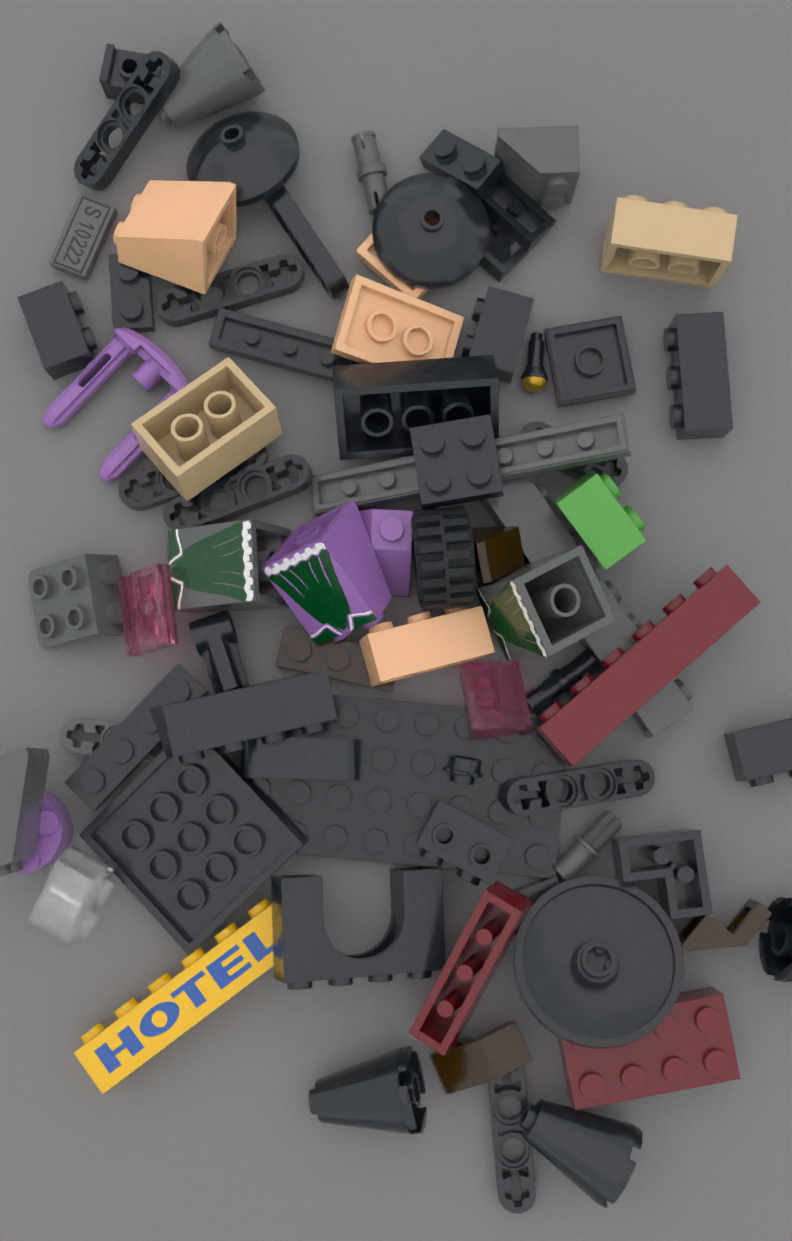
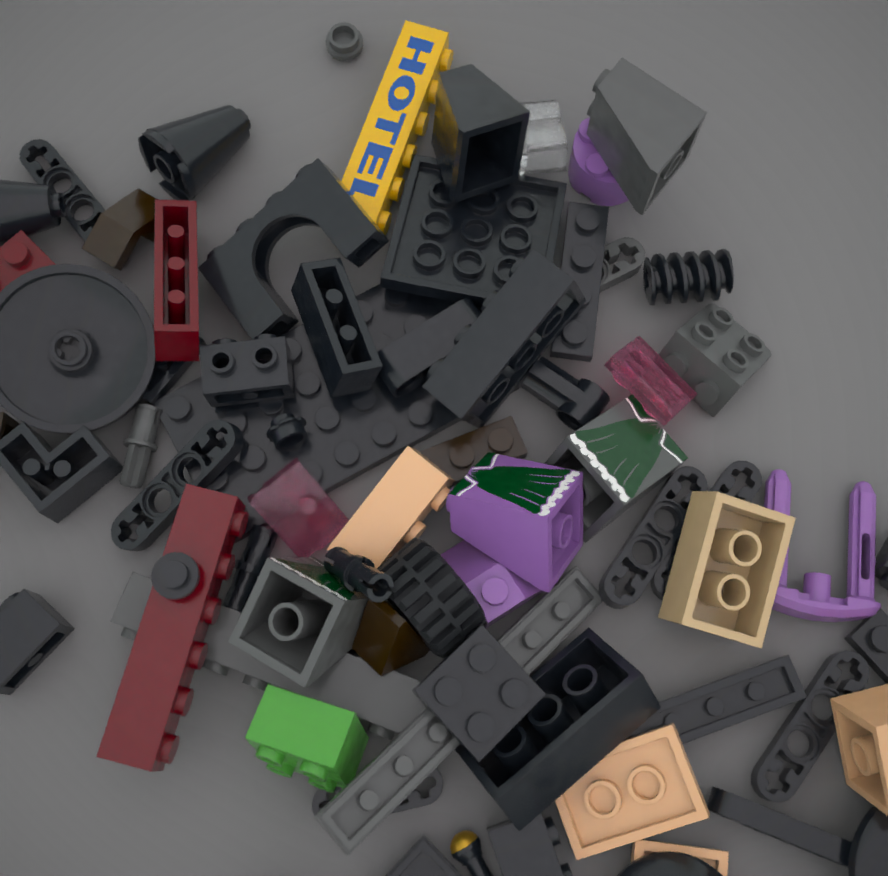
camera: 145 degrees right, 10 degrees down
(46, 680) = (688, 274): none -> black piece
(128, 925) = (476, 133): none -> black slope
(168, 1122) = (344, 41): none -> dark grey plate
(368, 827) = (336, 327): none -> black brick
(487, 605) = (358, 574): none -> black pin
(625, 692) = (175, 575): none -> black plate

